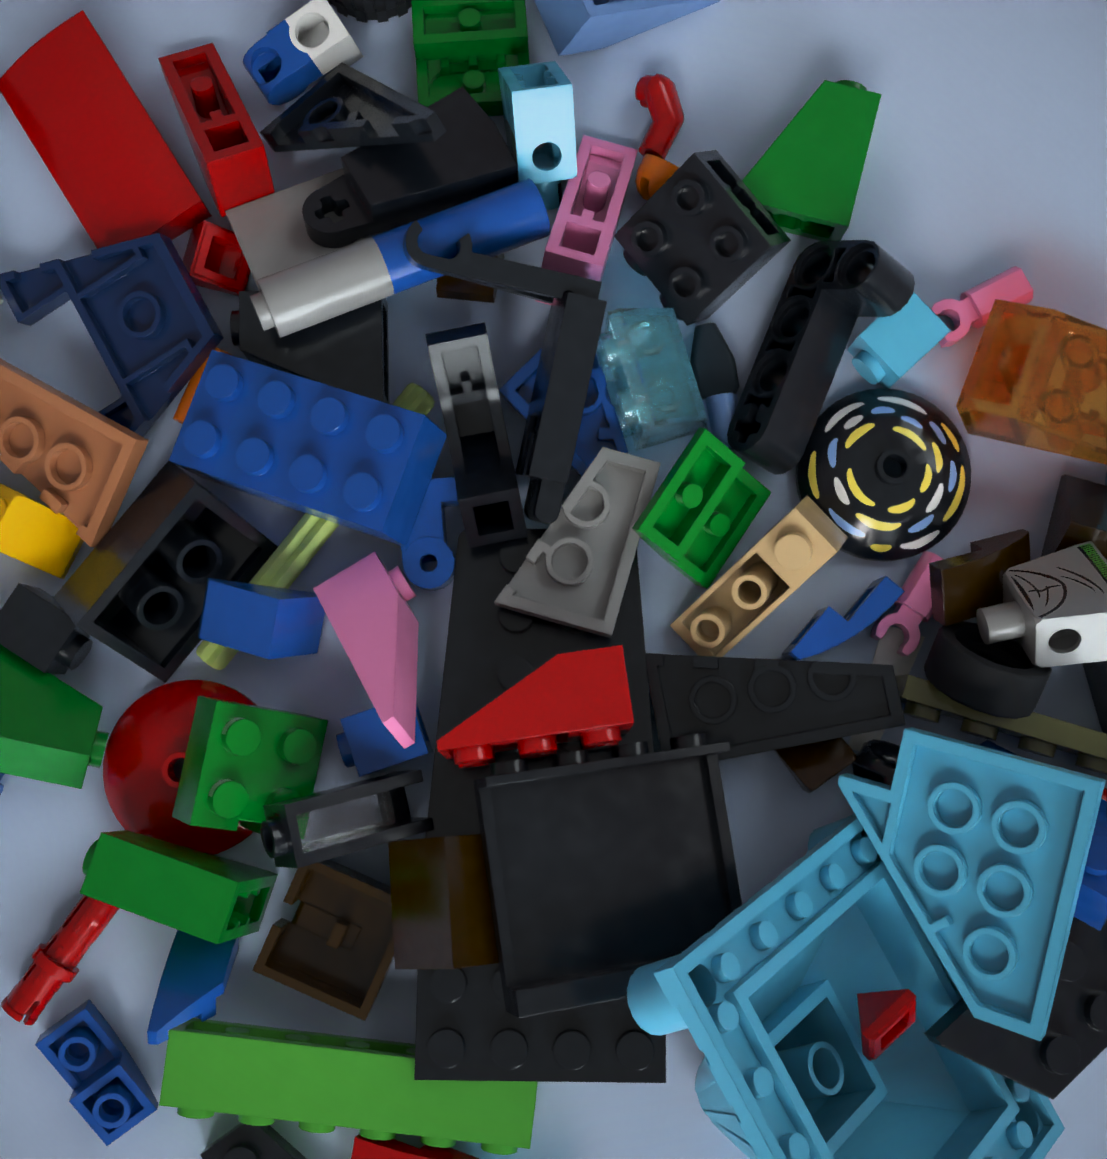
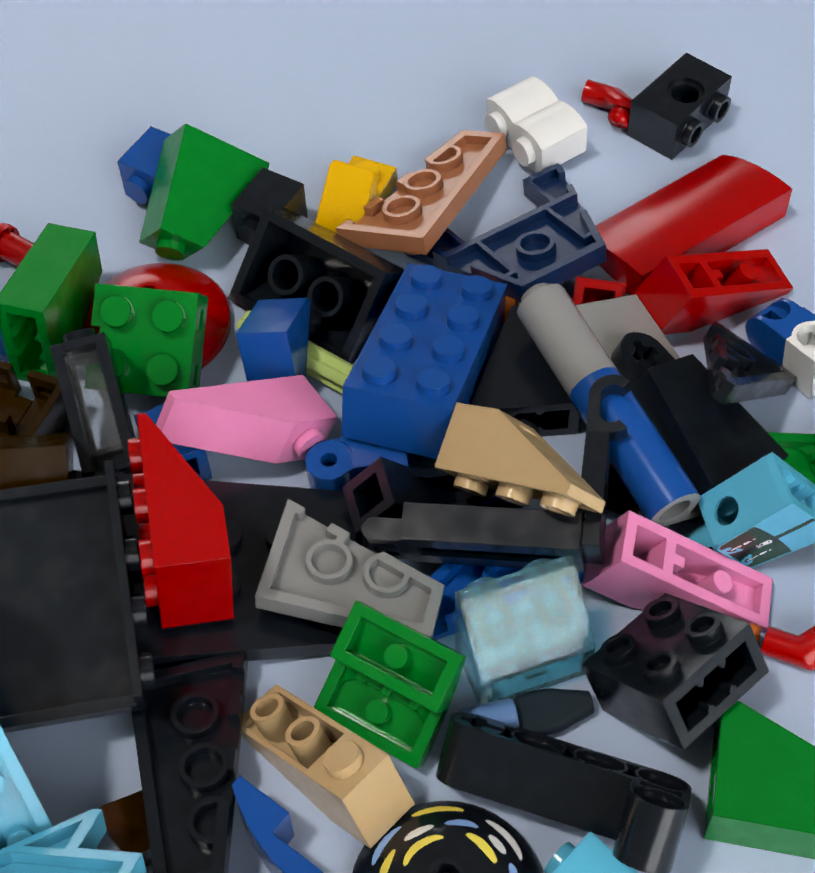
camera: 90 degrees right, 30 degrees down
(486, 359) = (504, 455): none -> tan slope

